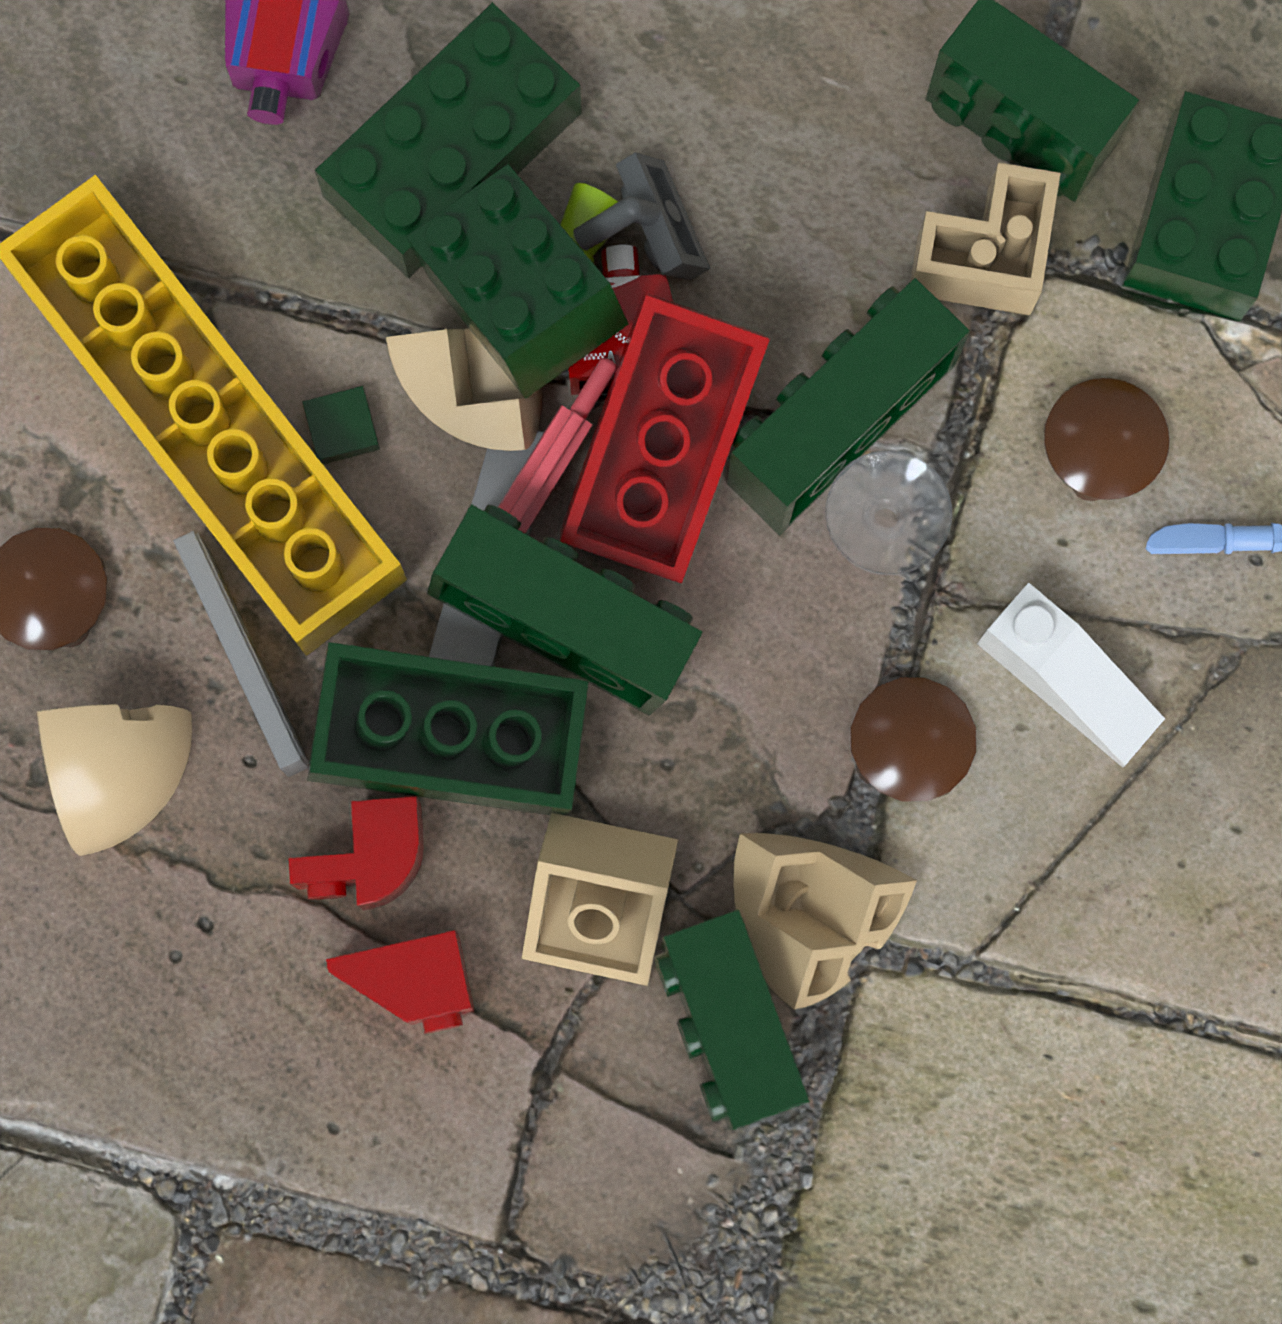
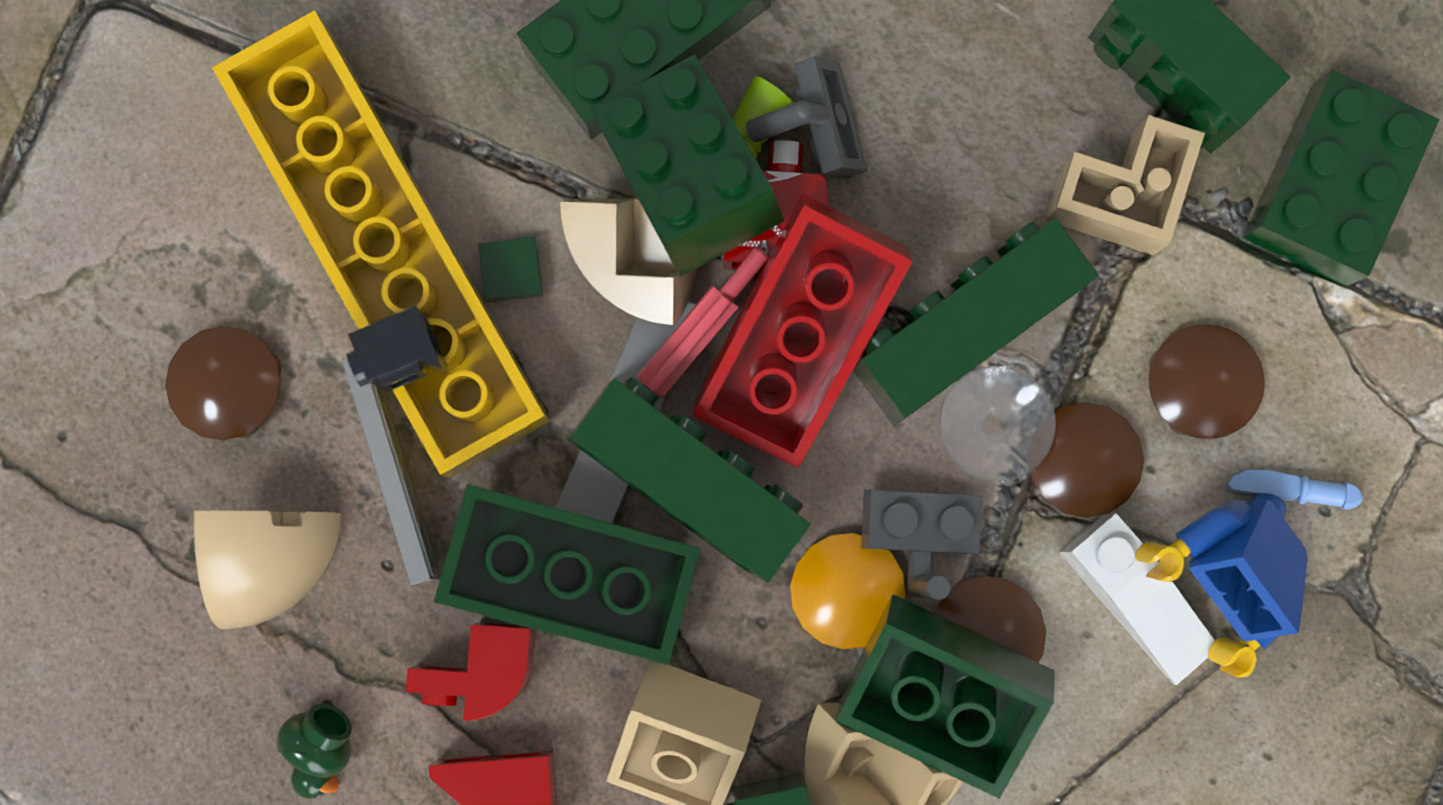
camera: 10 degrees right, 5 degrees up
(201, 962) = (316, 748): none -> dark green animal
(231, 513) = (395, 351): none -> black window
(754, 715) = (844, 589): none -> light orange dish
(824, 633) = (922, 526): none -> dark grey plate
(877, 803) = (947, 696): none -> dark green brick
(994, 540) = (1091, 461): none -> reddish brown dish
(1180, 622) = (1248, 568): none -> blue torso

